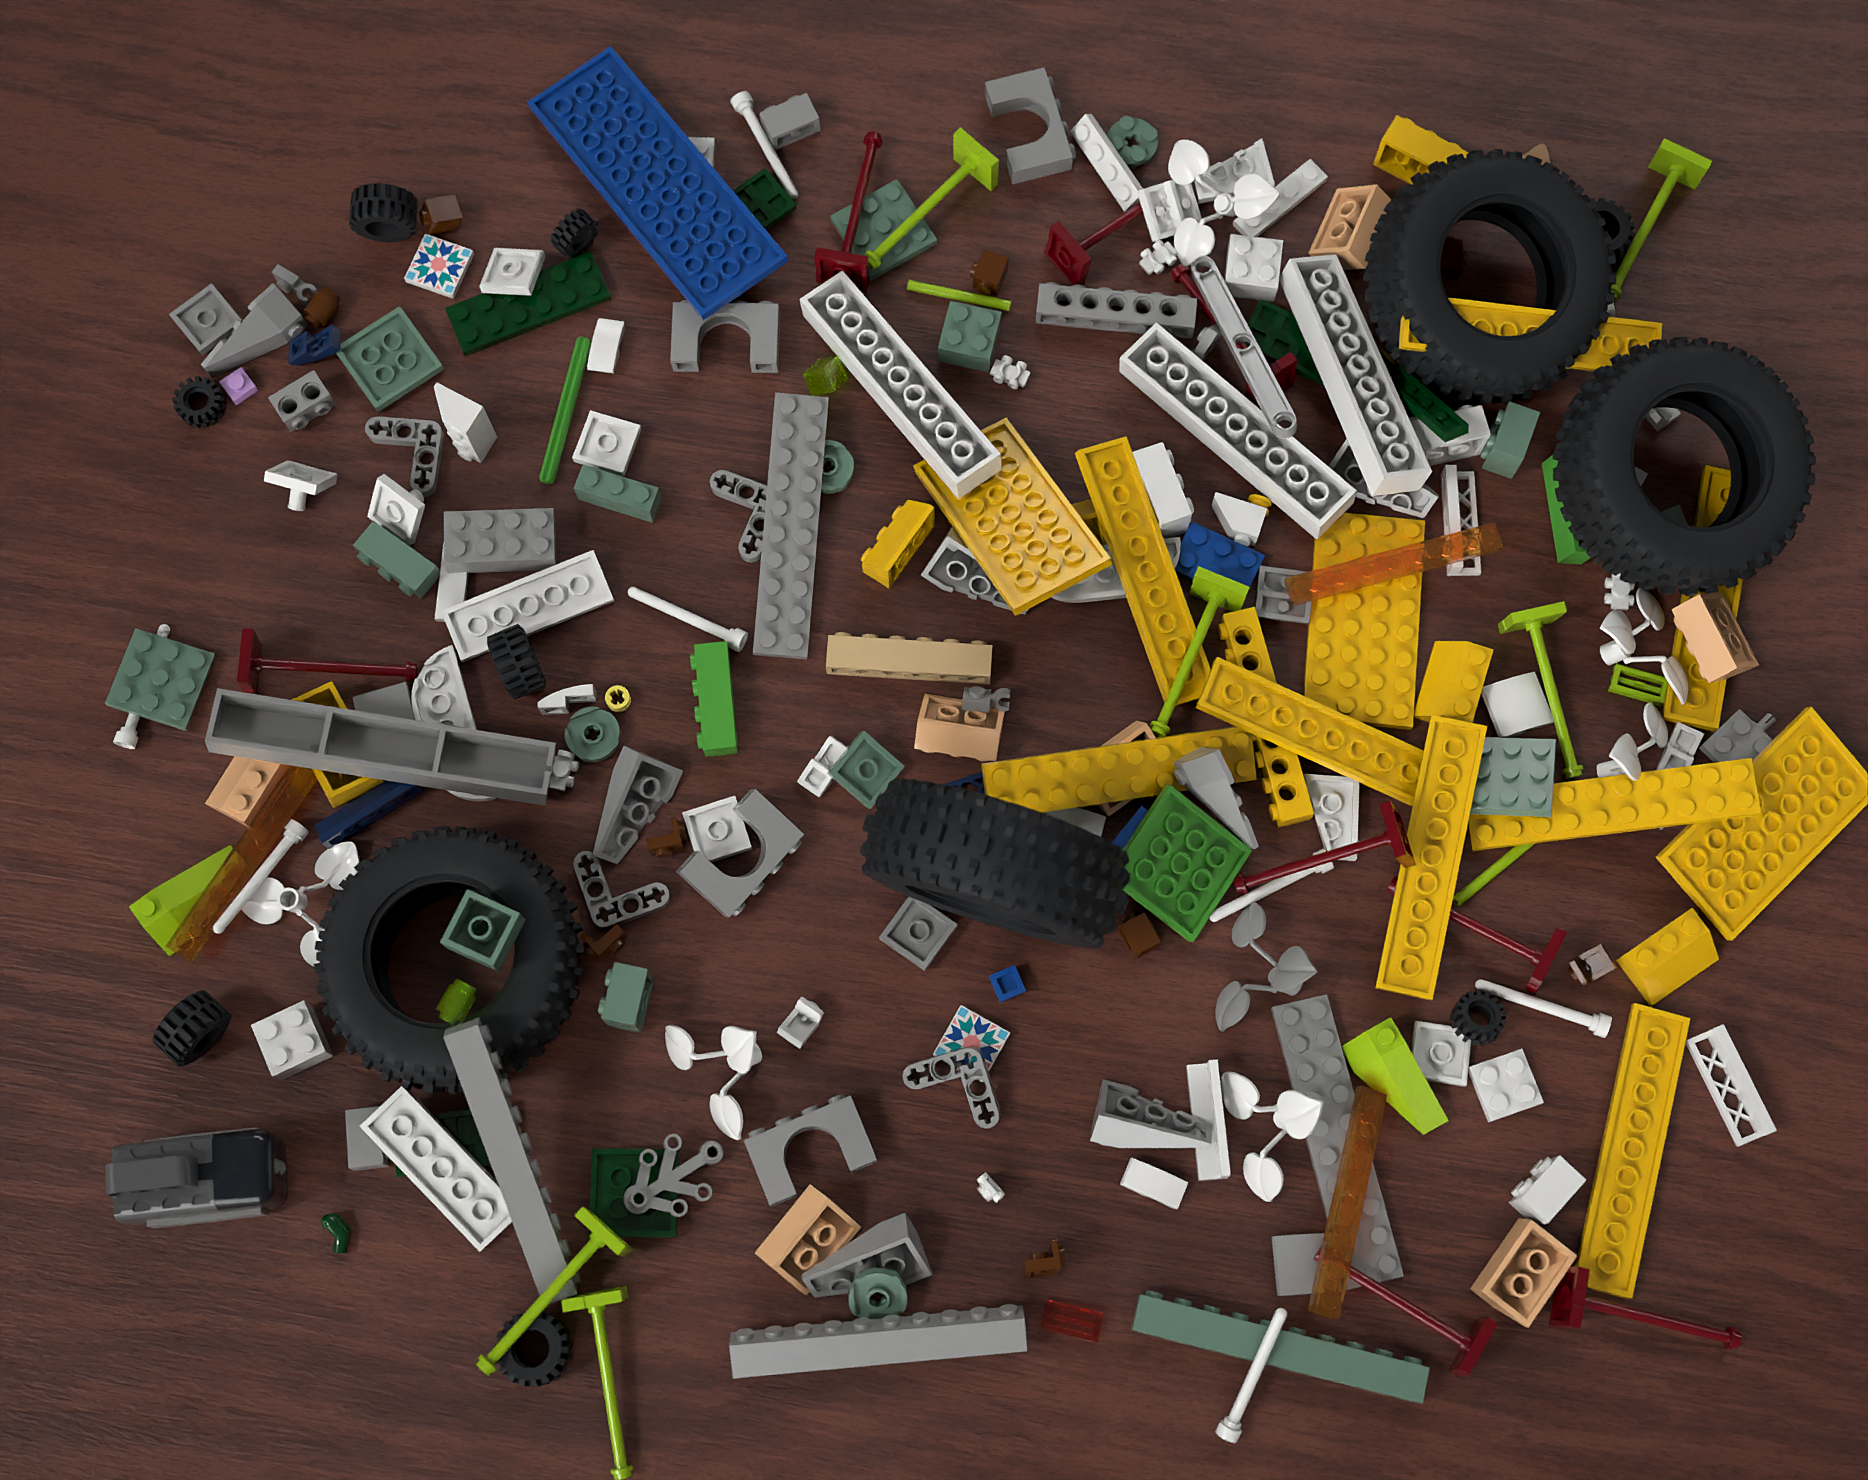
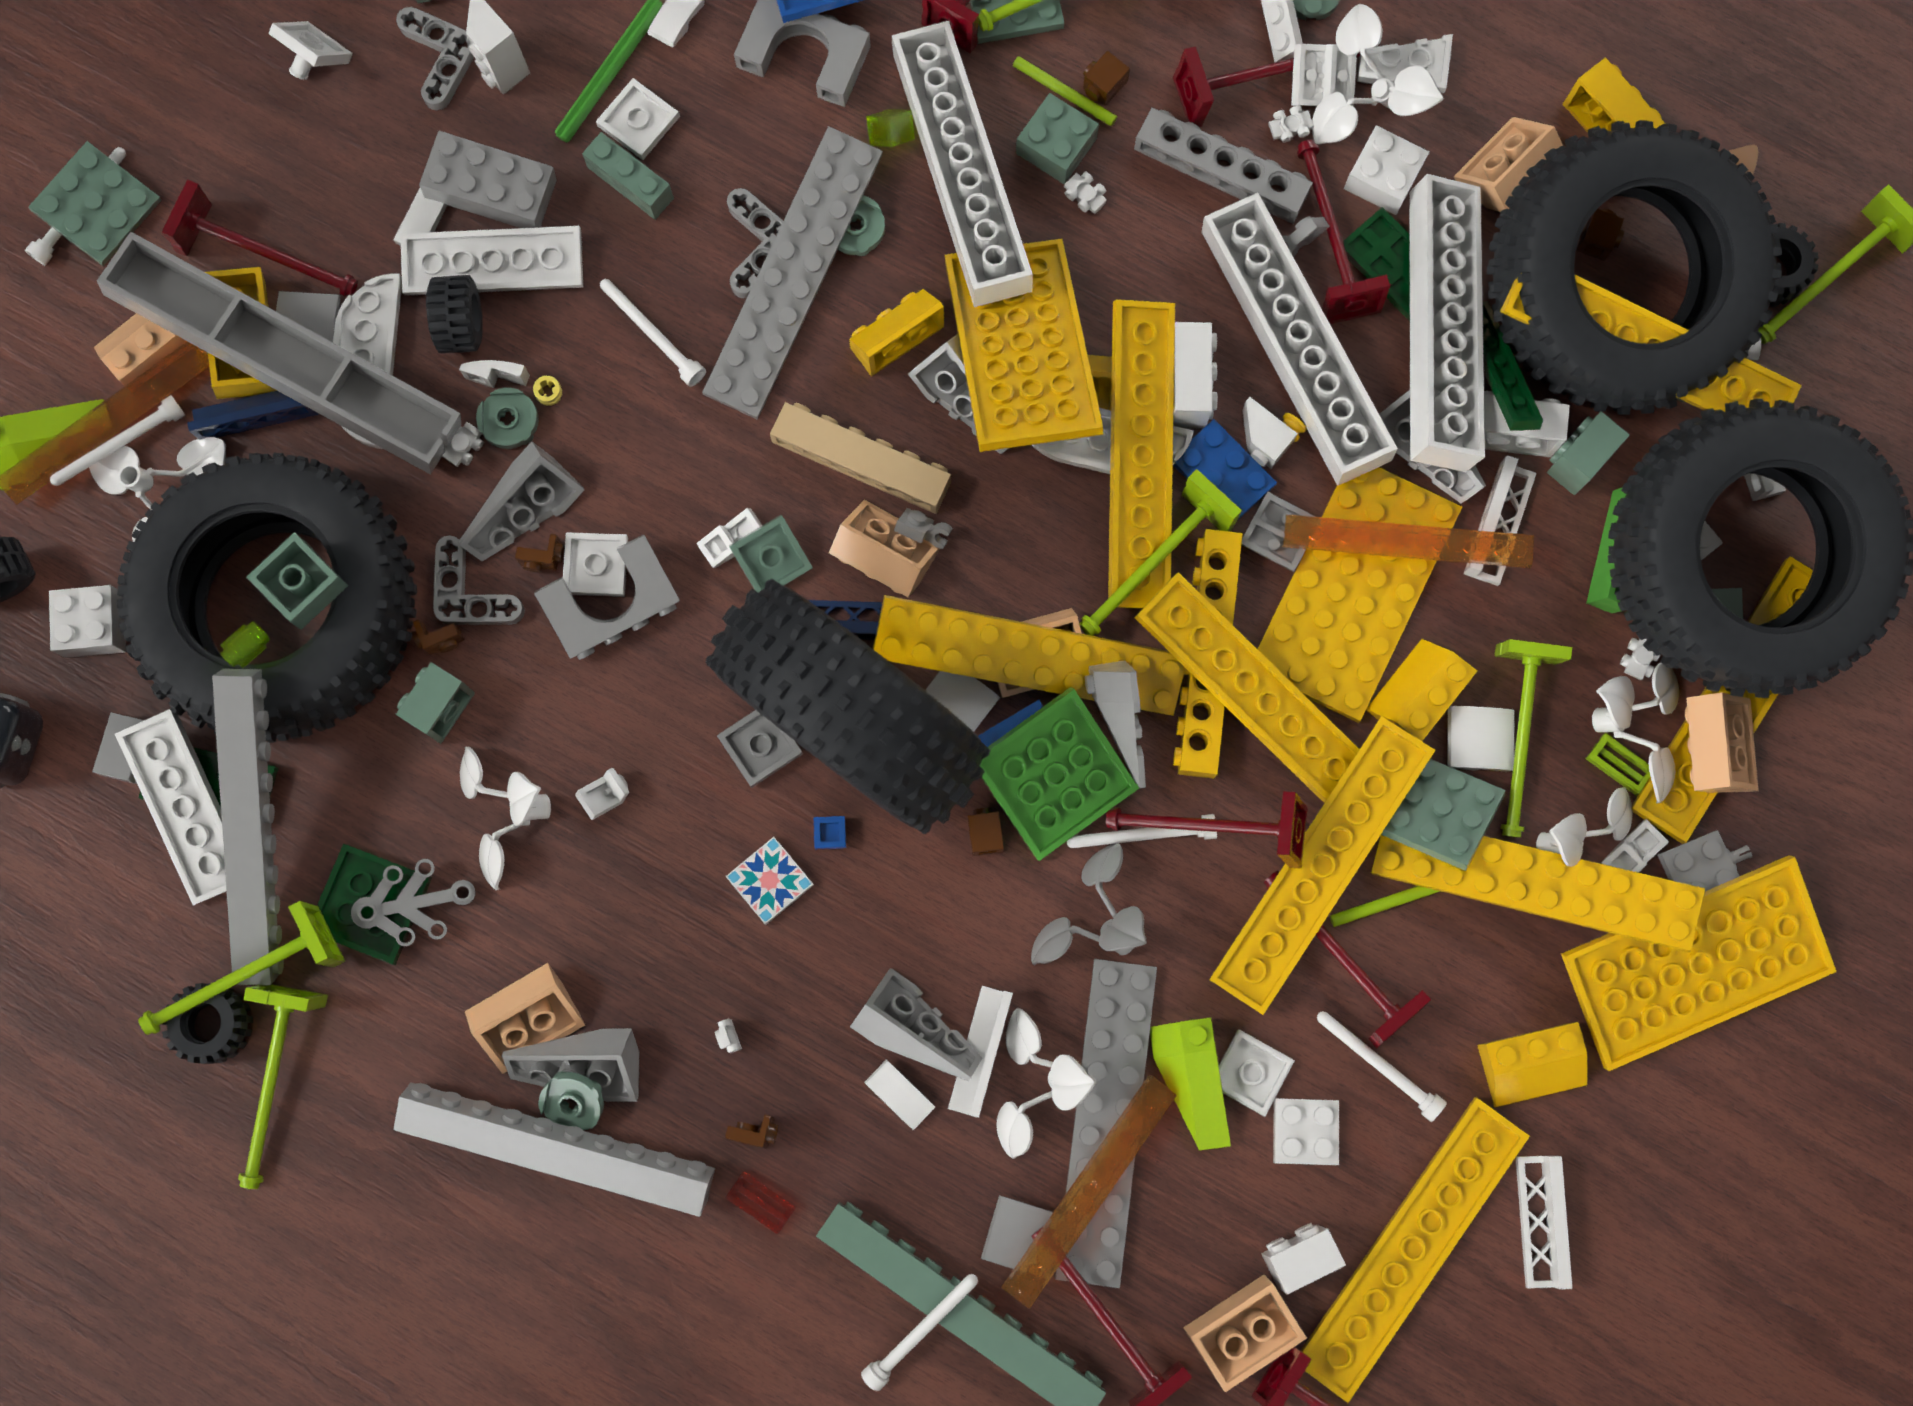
camera: 20 degrees right, 5 degrees up
(339, 1229) = (64, 830): dark green arm -> none
(396, 509) = (395, 112): white tile -> none
(396, 560) = (376, 165): sand green brick -> none
(716, 699) = (645, 426): bright green brick -> none
(770, 1146) = (521, 911): light grey arch -> none
(967, 1075) = (751, 911): light grey beam -> none
(1250, 360) = (1339, 267): light grey beam -> none
(1293, 191) = (1456, 106): white plate -> none
(1335, 809) = (1242, 777): white wing -> none
(1486, 1006) = (1316, 1039): black tyre -> none
(1591, 965) = (1447, 1041): bracket -> none

